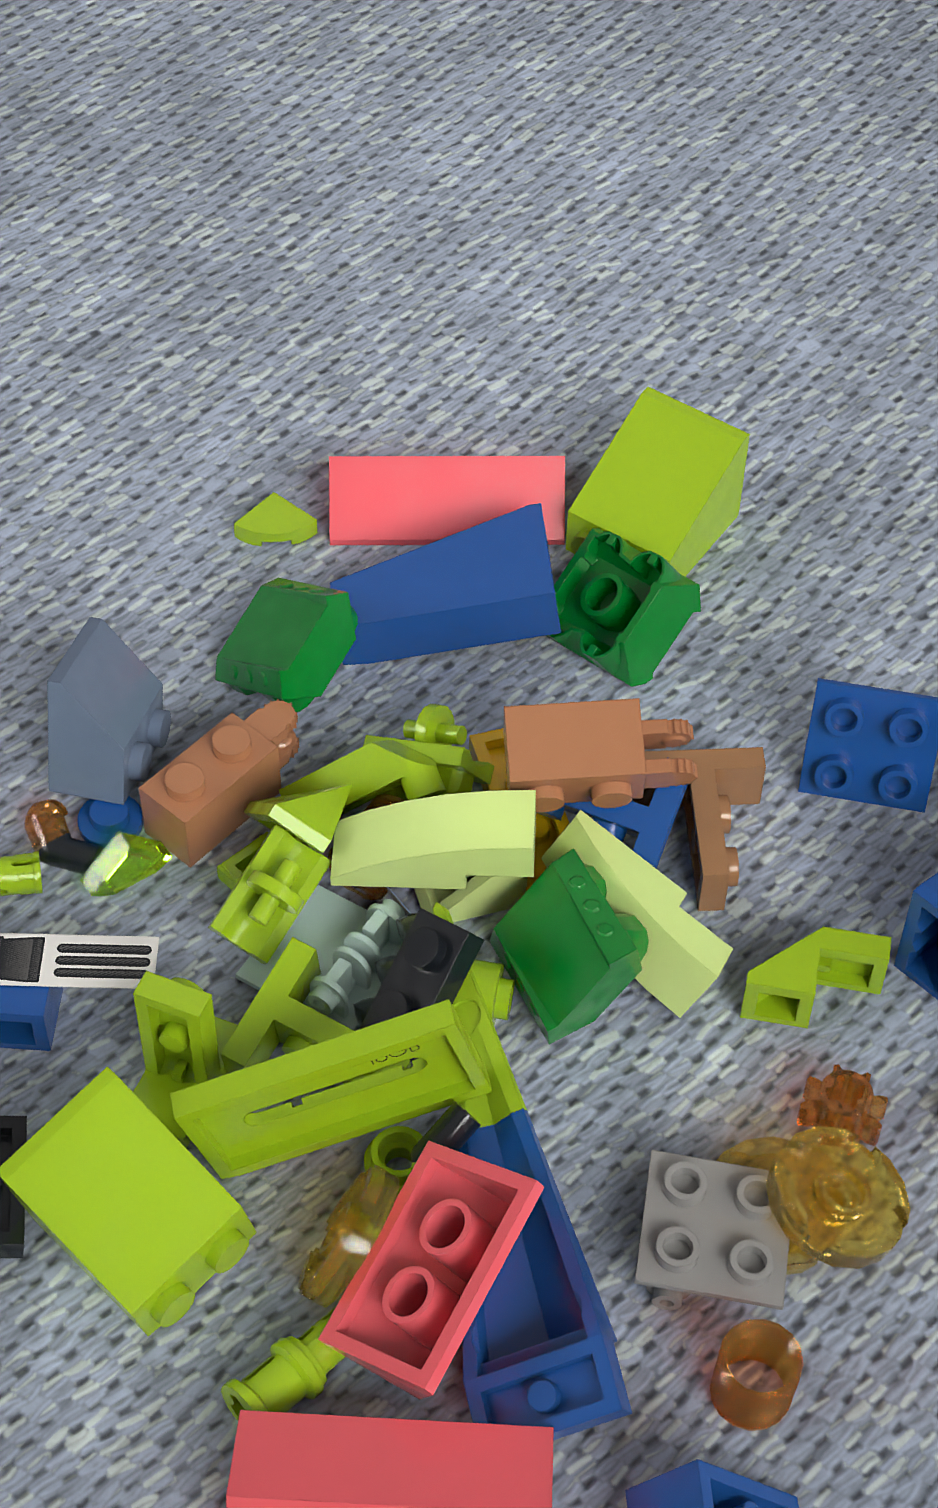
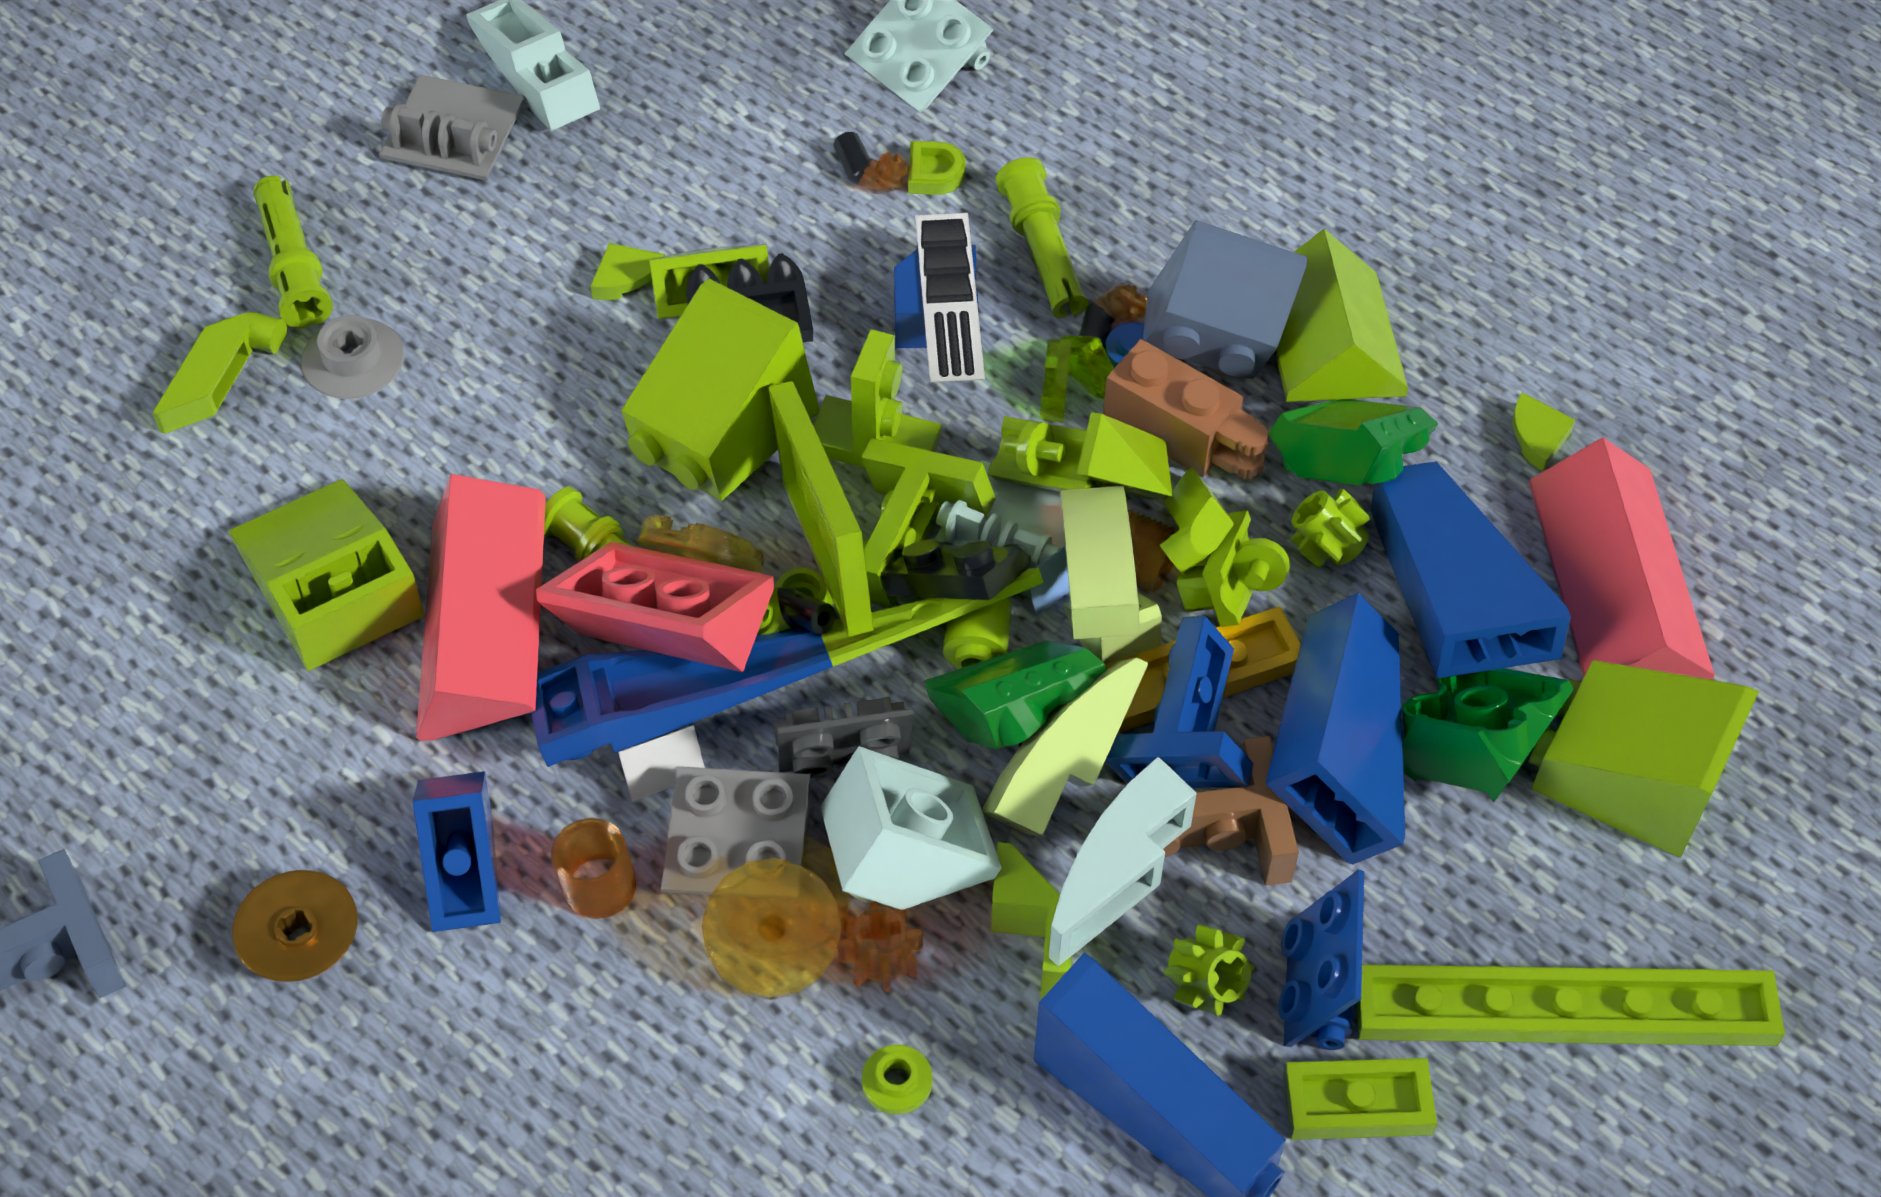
camera: 85 degrees right, 5 degrees up
(147, 891) = (1056, 380): none -> clear neon green tile
(173, 639) = (1338, 330): none -> lime slope
(366, 681) = (1330, 528): none -> lime gear
(534, 677) = (1343, 732): none -> blue slope
(591, 752) = (1200, 648): nougat hinge -> none
(606, 1114) = (816, 746): none -> dark grey hinge
(614, 1306) = (653, 764): none -> white sticker
(730, 1067) = (905, 832): none -> light aqua slope
(791, 870) = (1121, 857): none -> light aqua slope
(869, 841) = (1209, 969): none -> lime gear
(892, 580) = (1569, 1005): none -> lime plate

